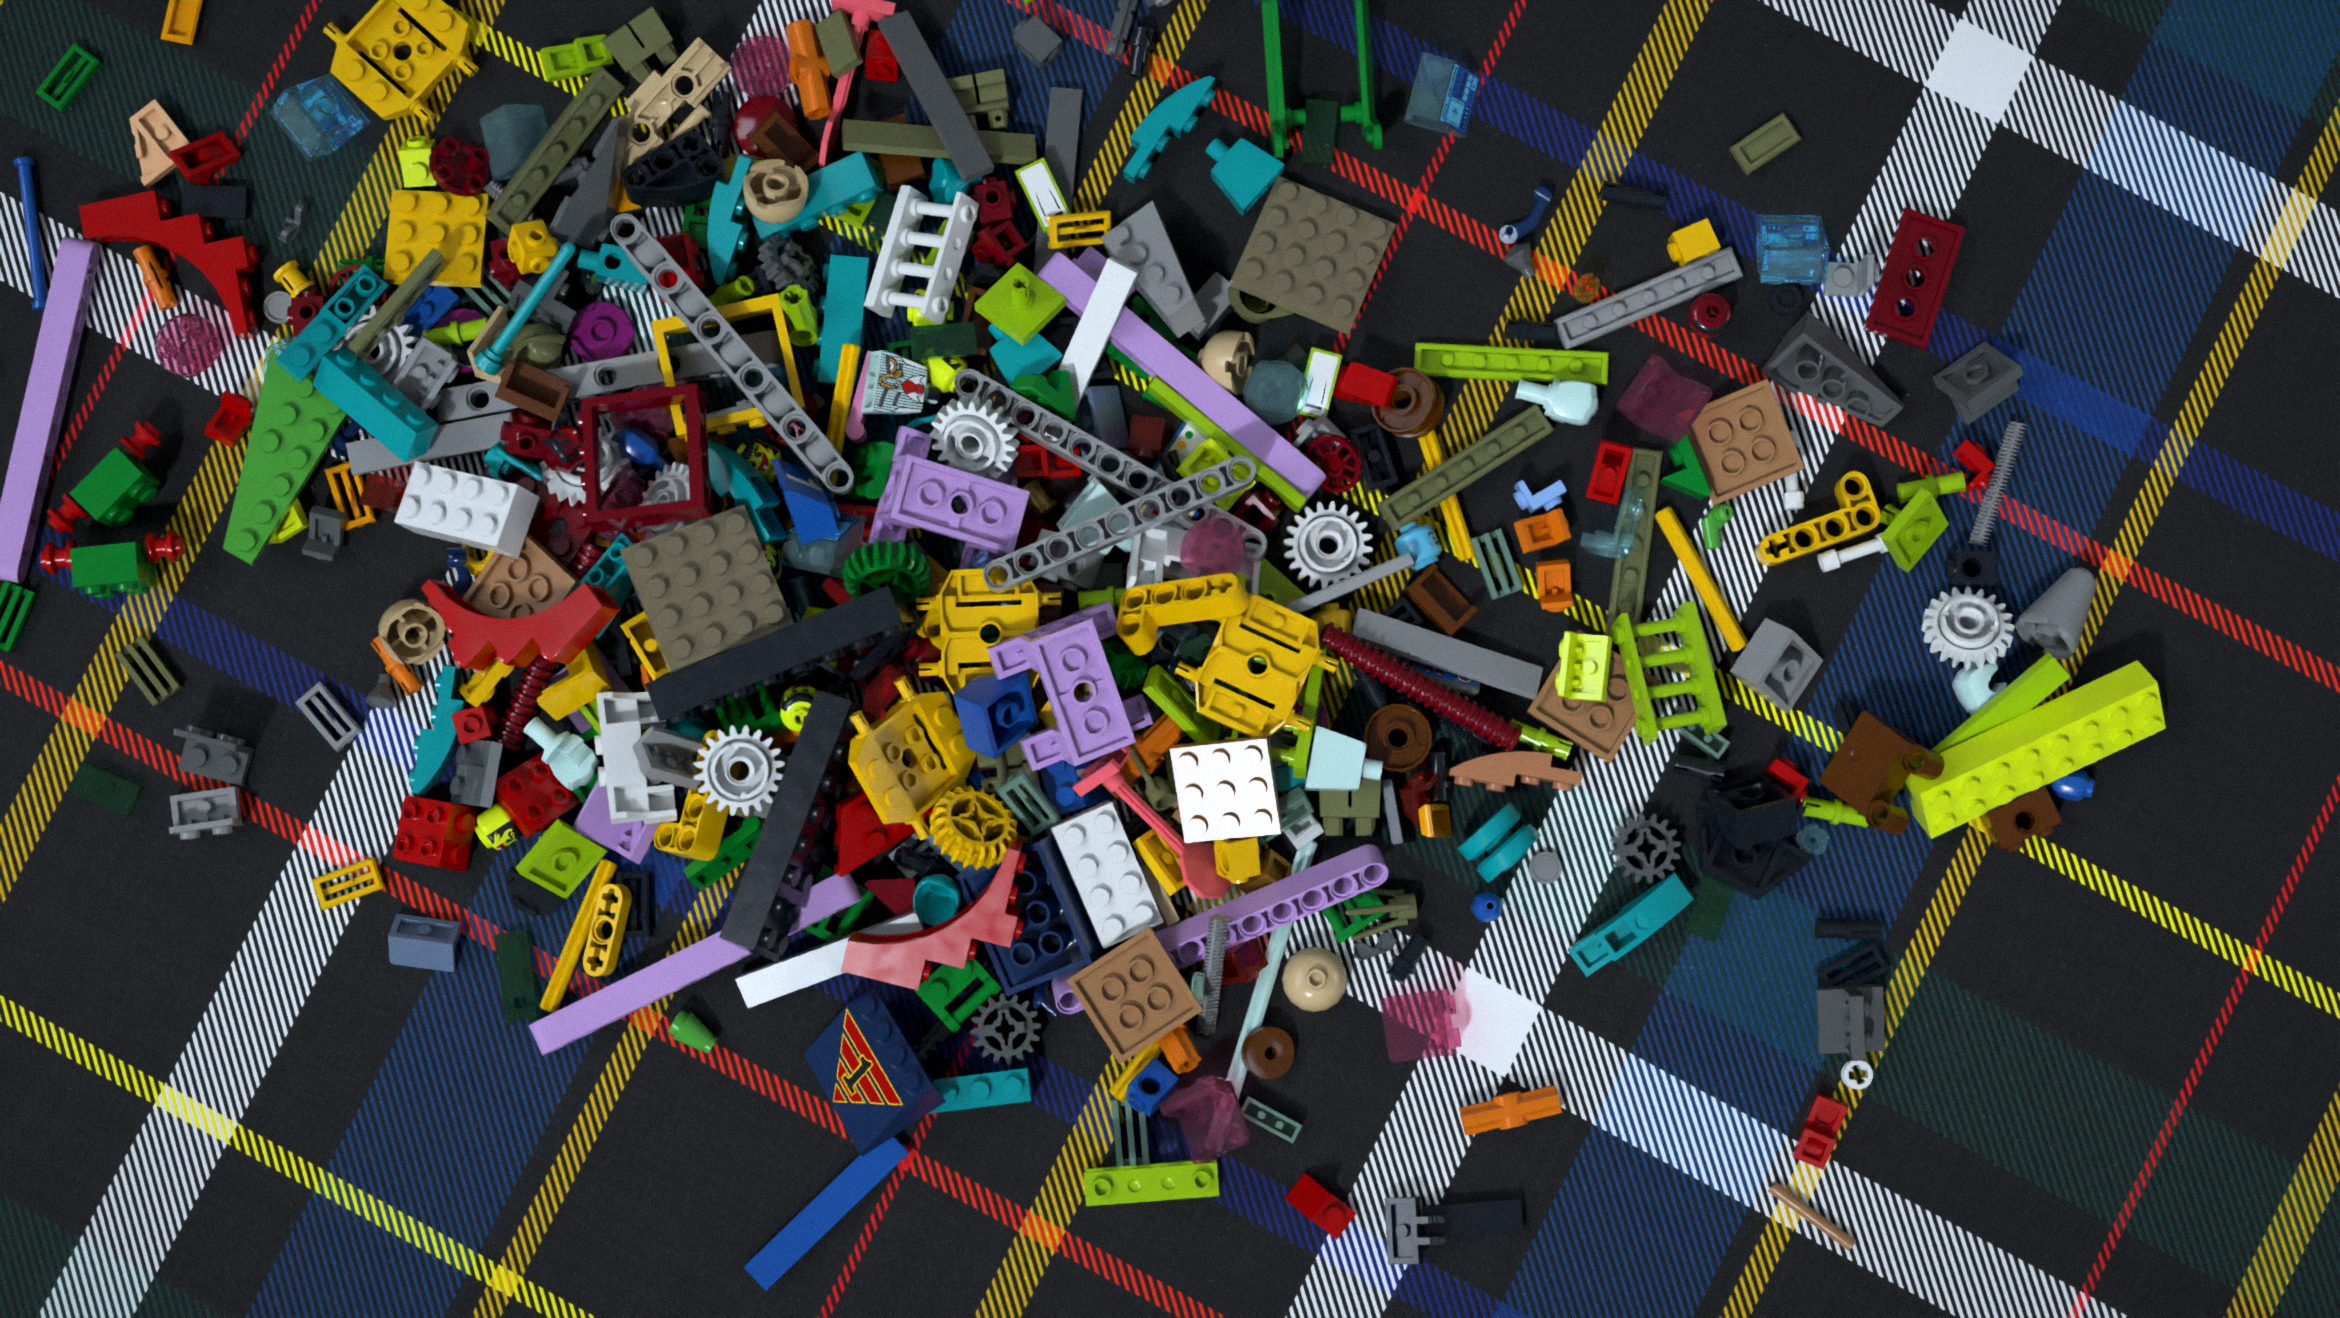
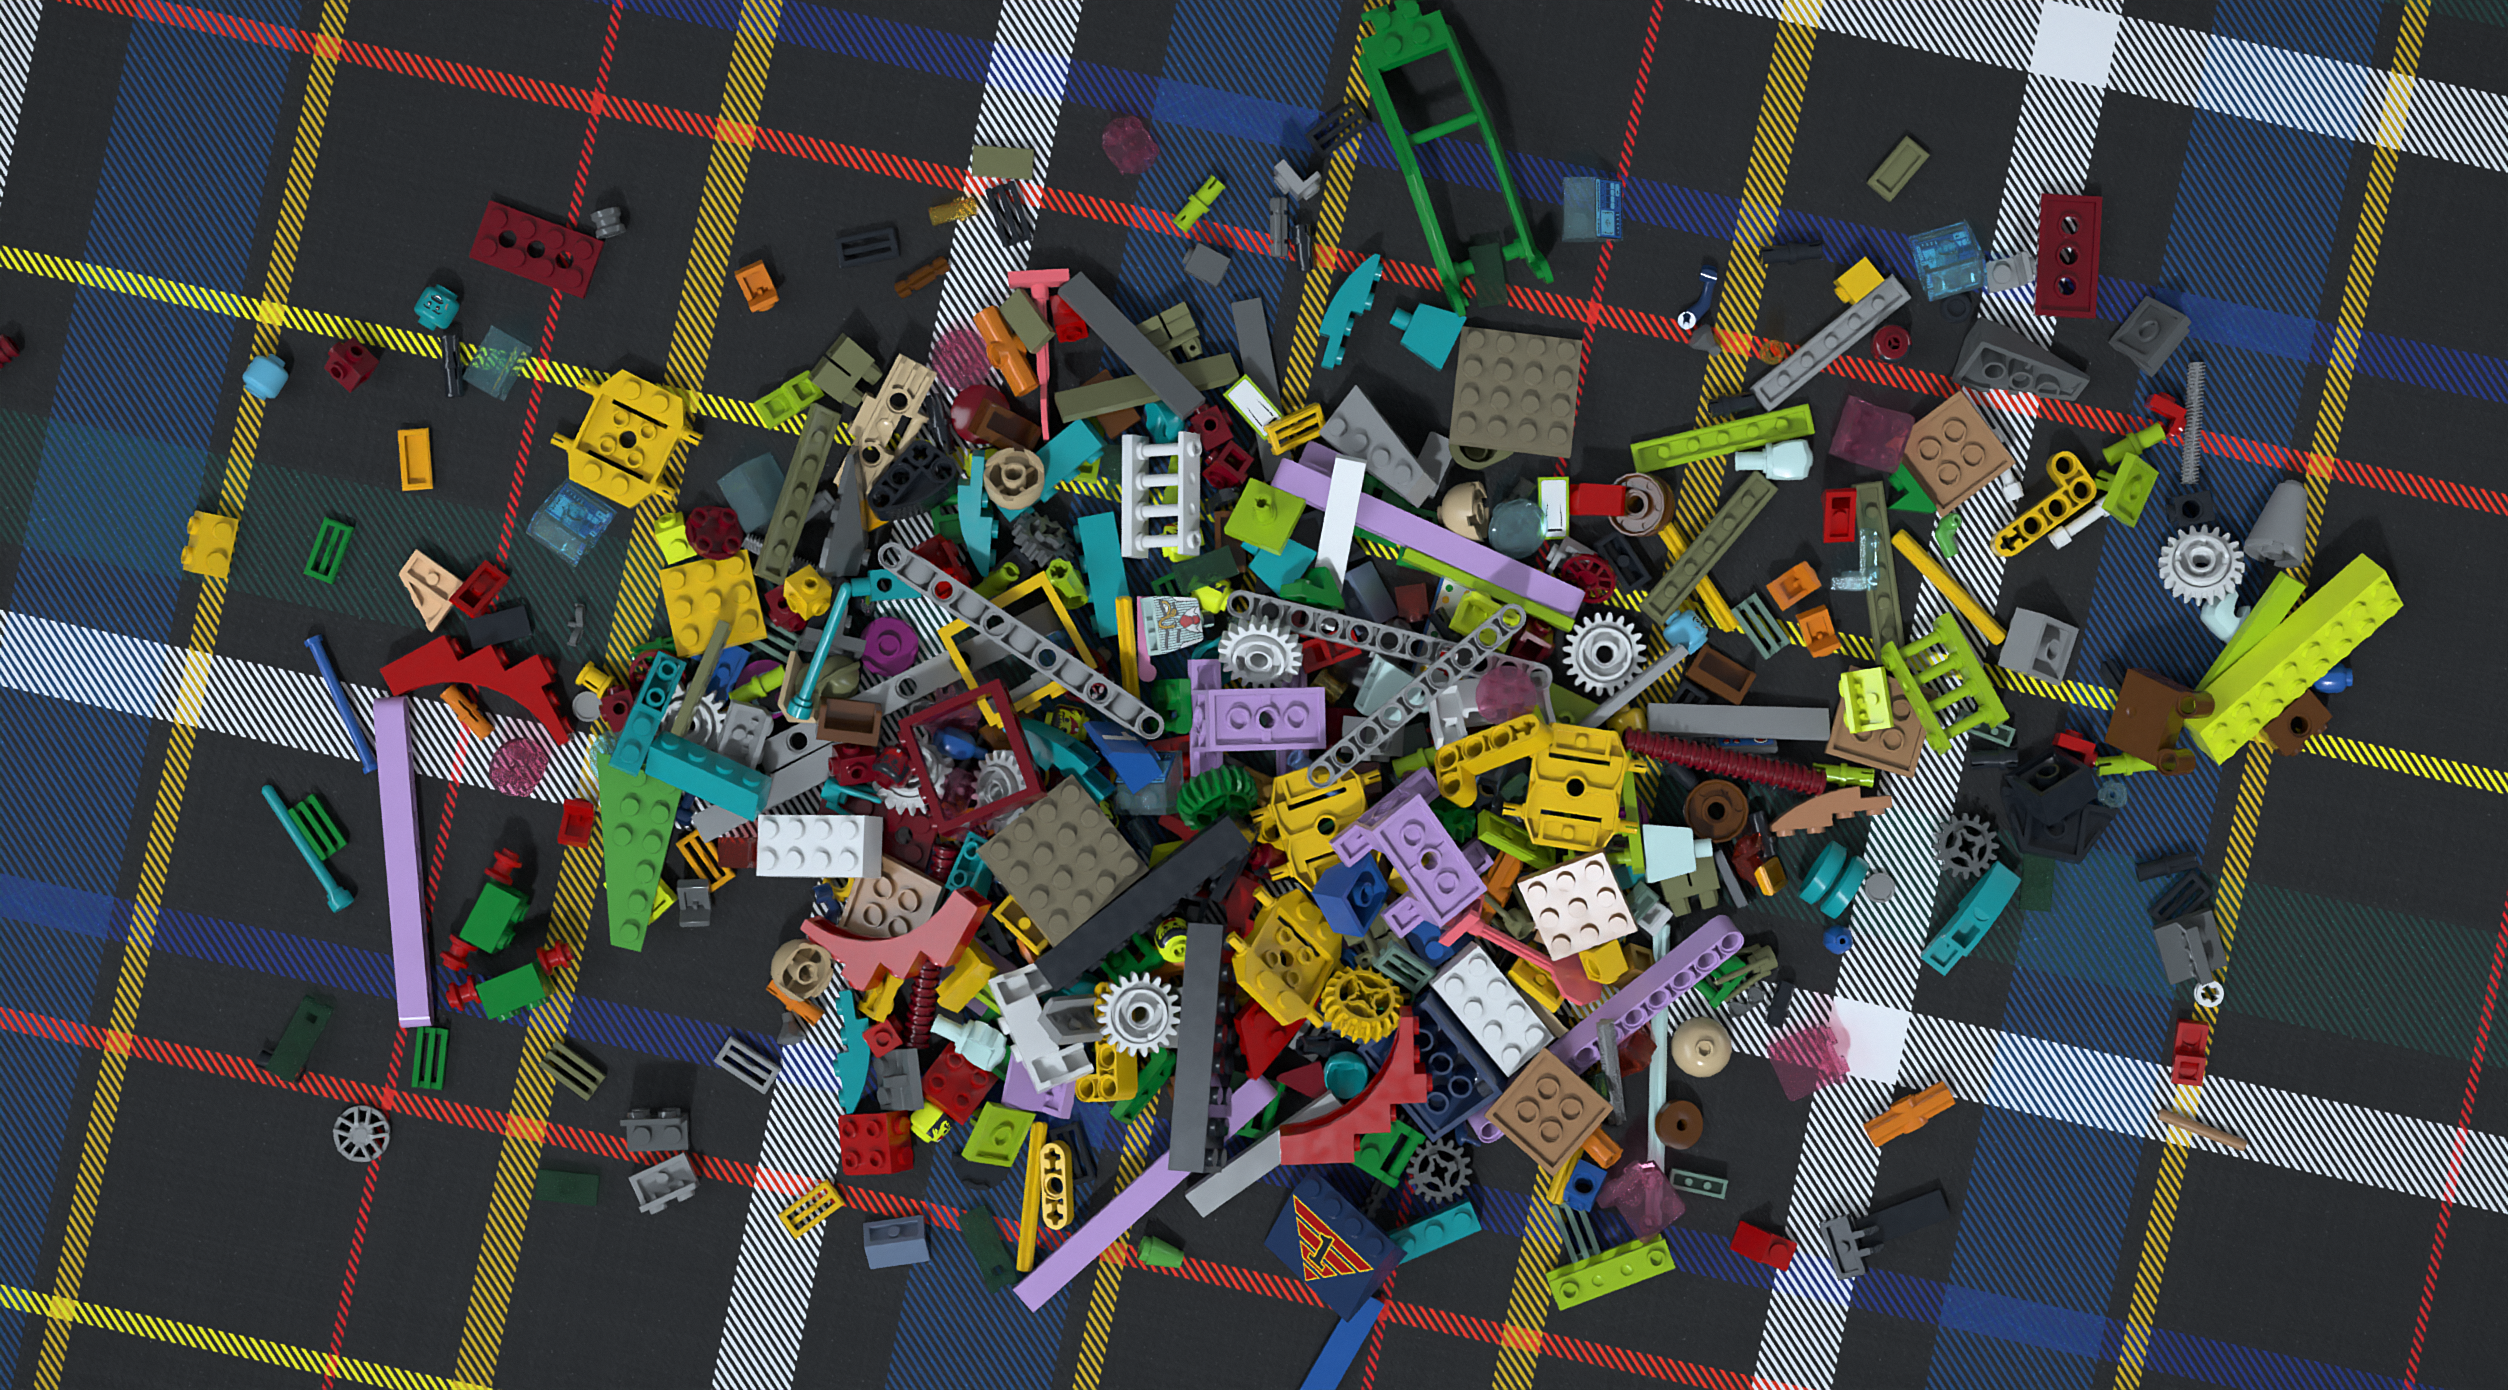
camera: 20 degrees left, 5 degrees up
(1547, 498) = (1789, 554): light blue bracket -> none

